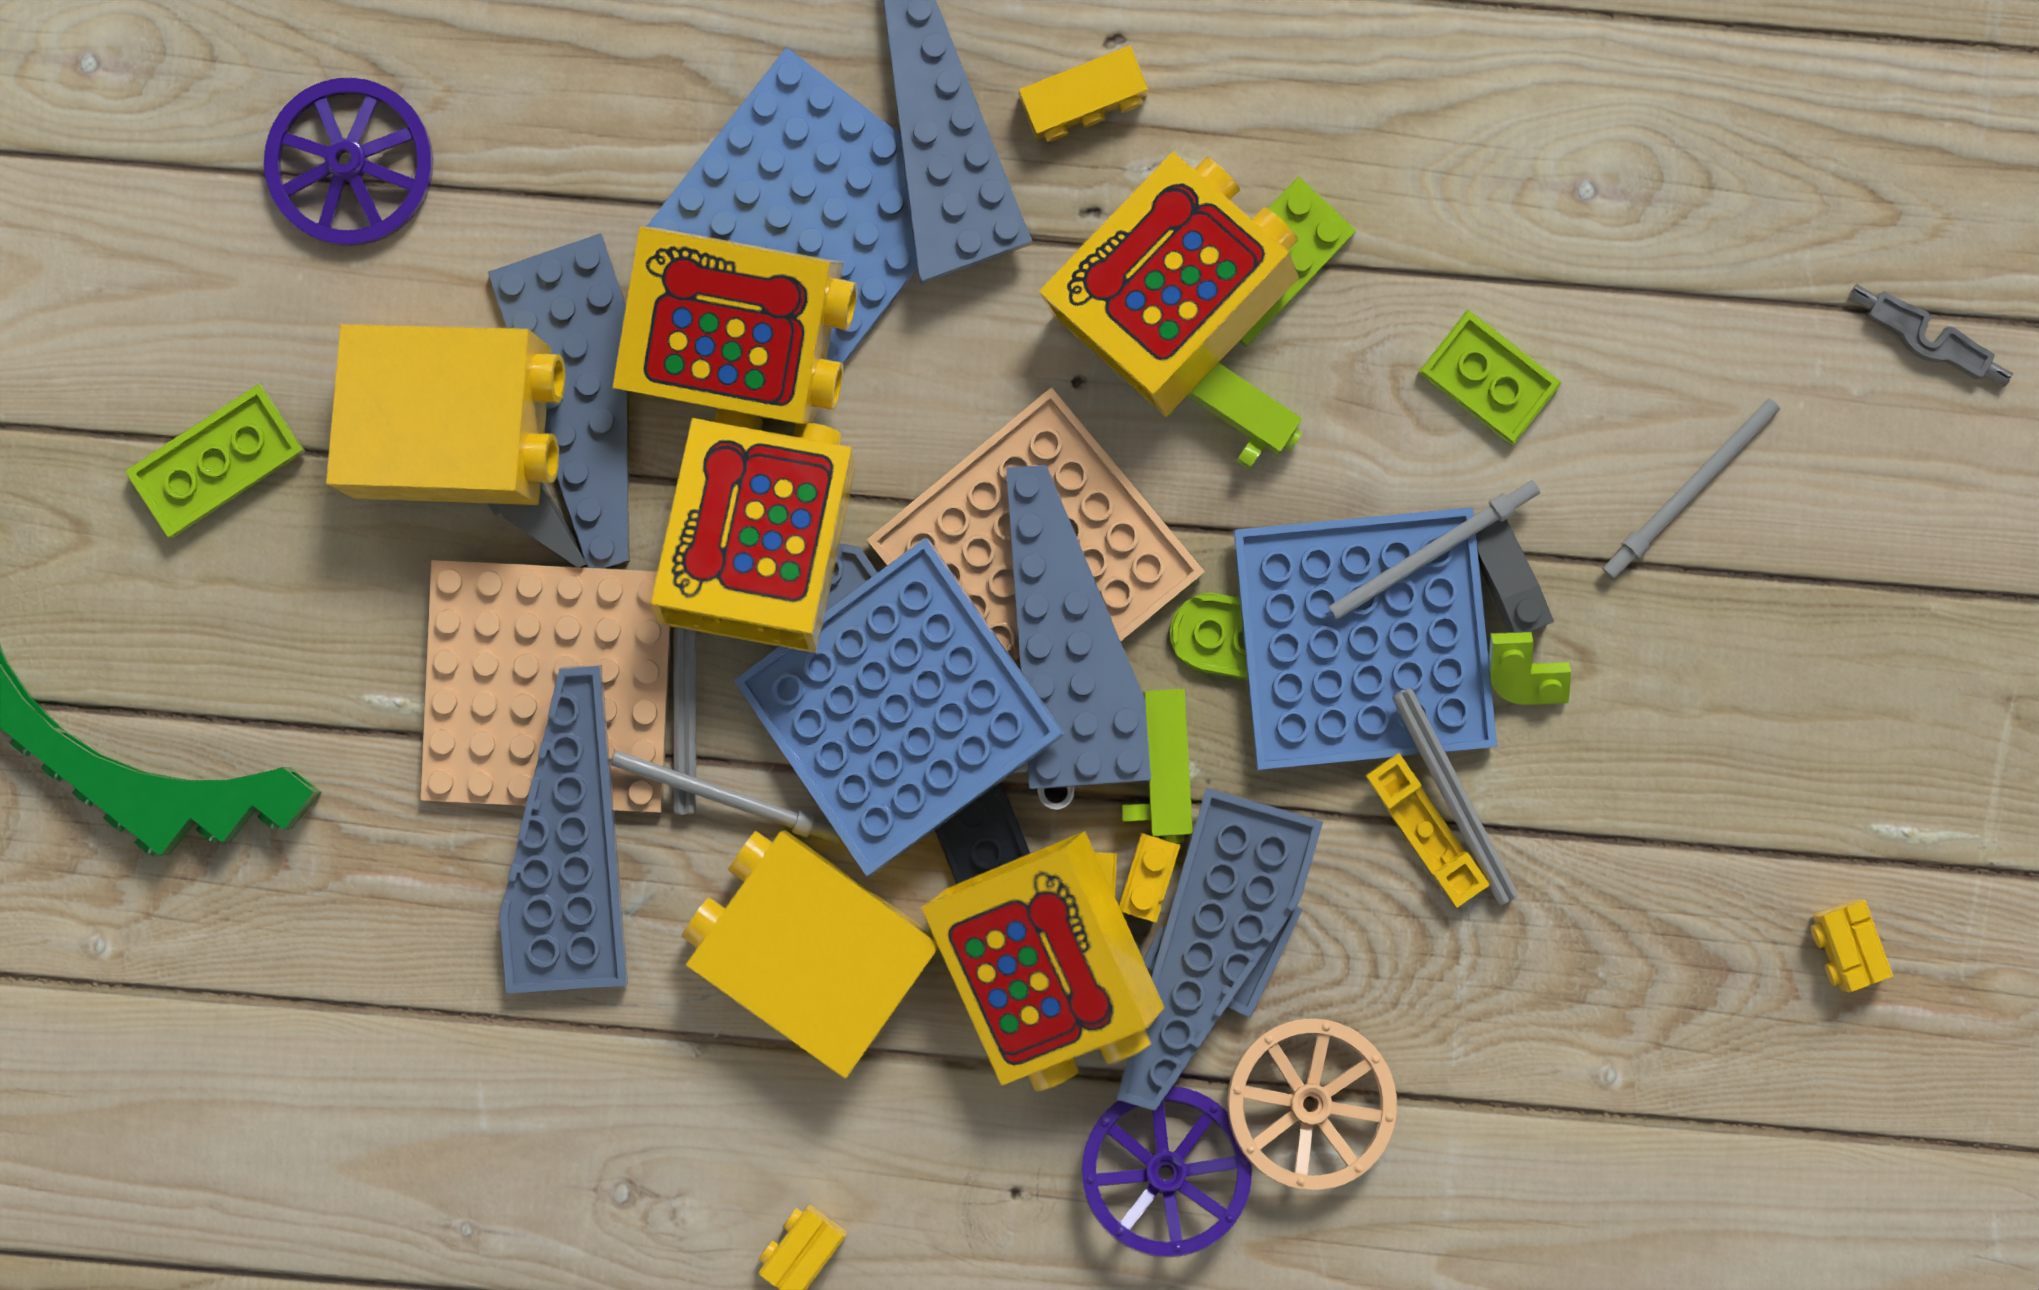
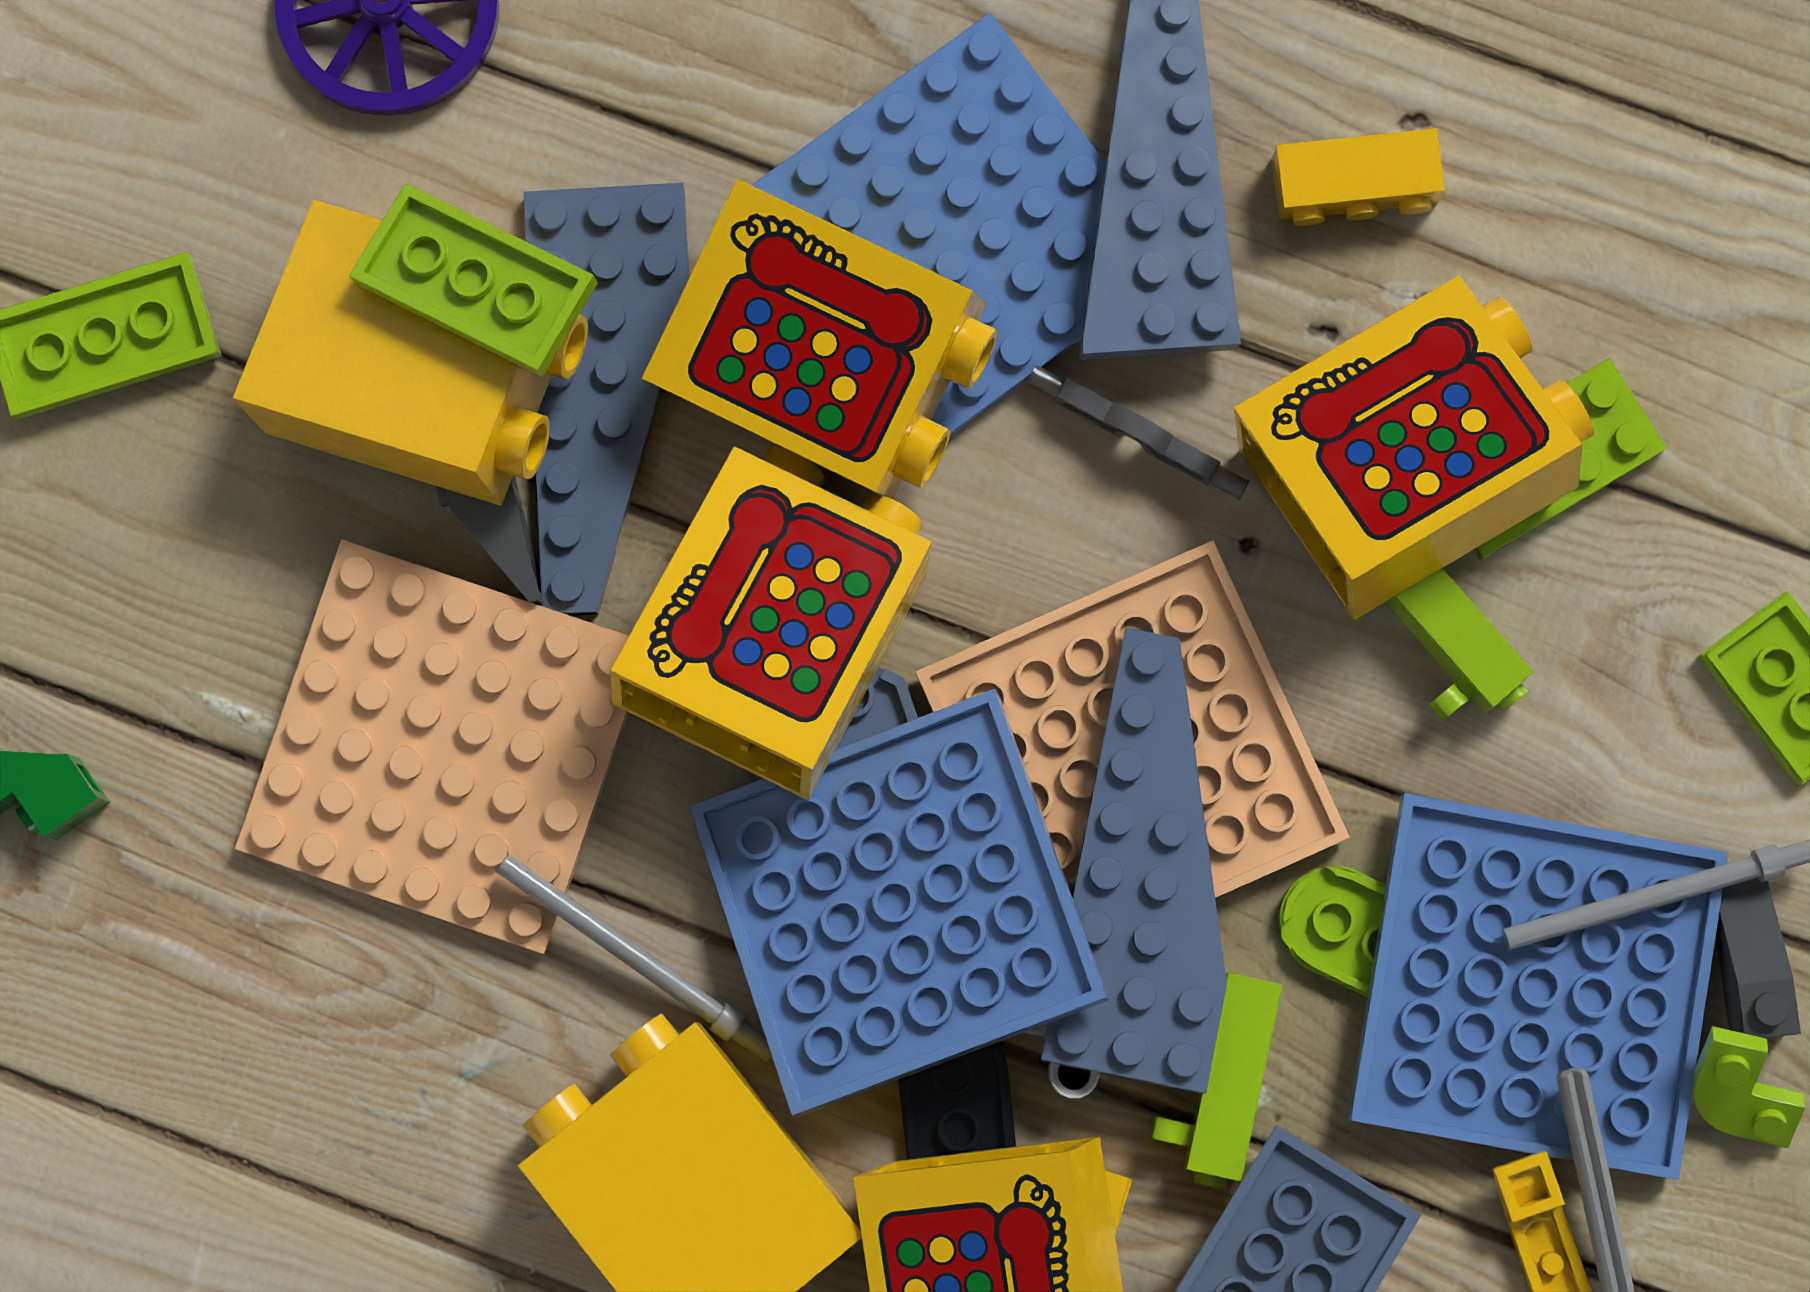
camera: 15 degrees right, 5 degrees down
(473, 352) = (473, 279): none -> lime plate
(564, 884) = (387, 1022): sand blue wing -> none
(684, 715) = (612, 834): light grey axle -> none
(973, 321) = (1149, 435): none -> flat silver piece
(1148, 877) = (1165, 1223): yellow brick -> none

